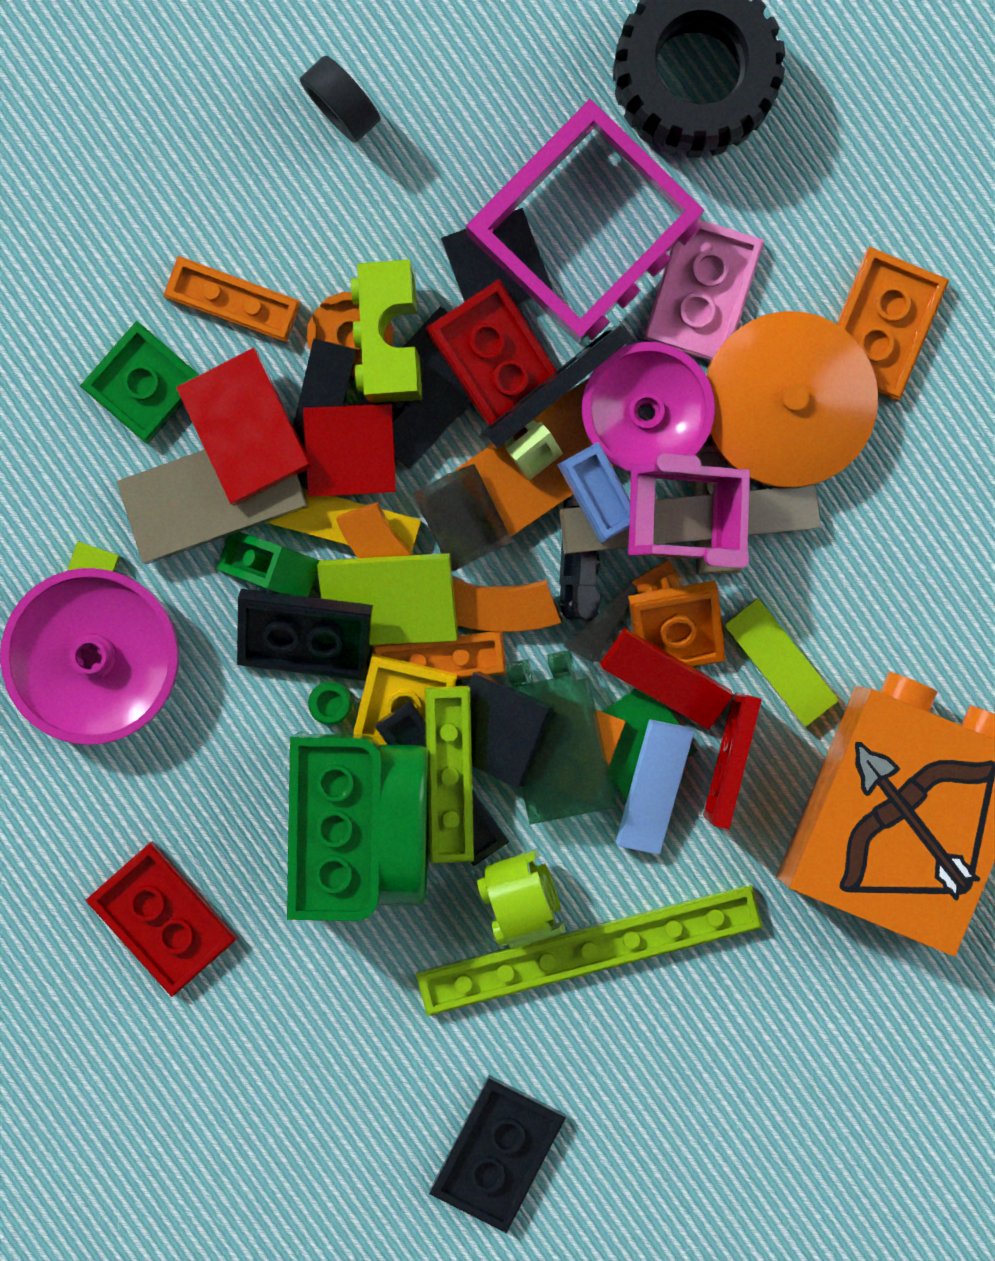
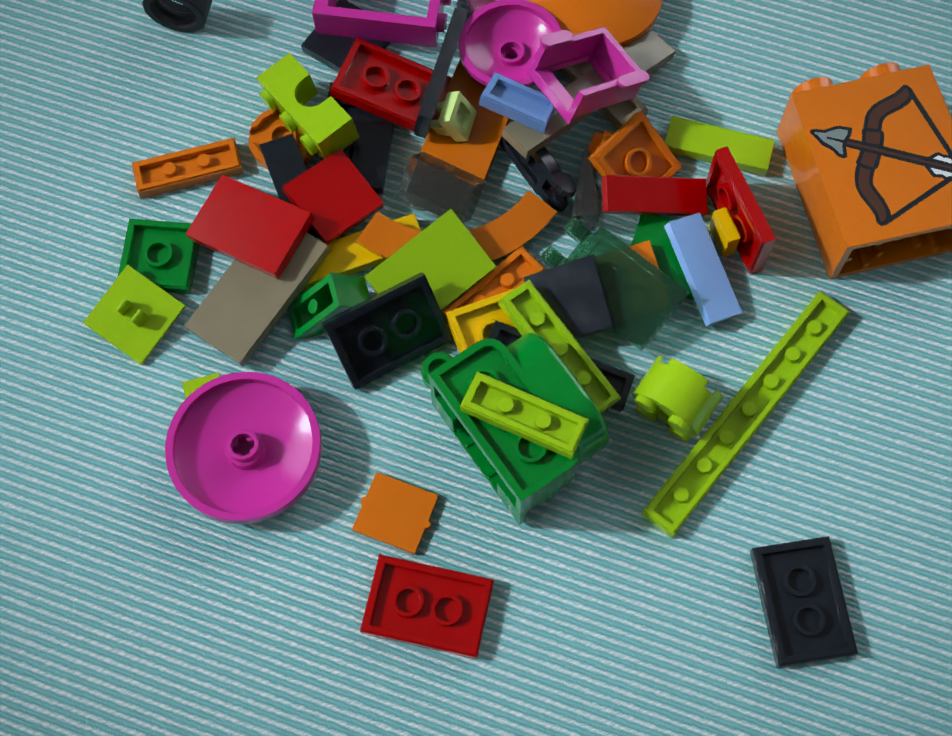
camera: 35 degrees left, 20 degrees down
(77, 433) = (134, 314): none -> lime piece
(193, 810) = (395, 513): none -> orange piece
(346, 844) = (524, 415): none -> lime tile
(707, 763) = (724, 232): none -> yellow tile

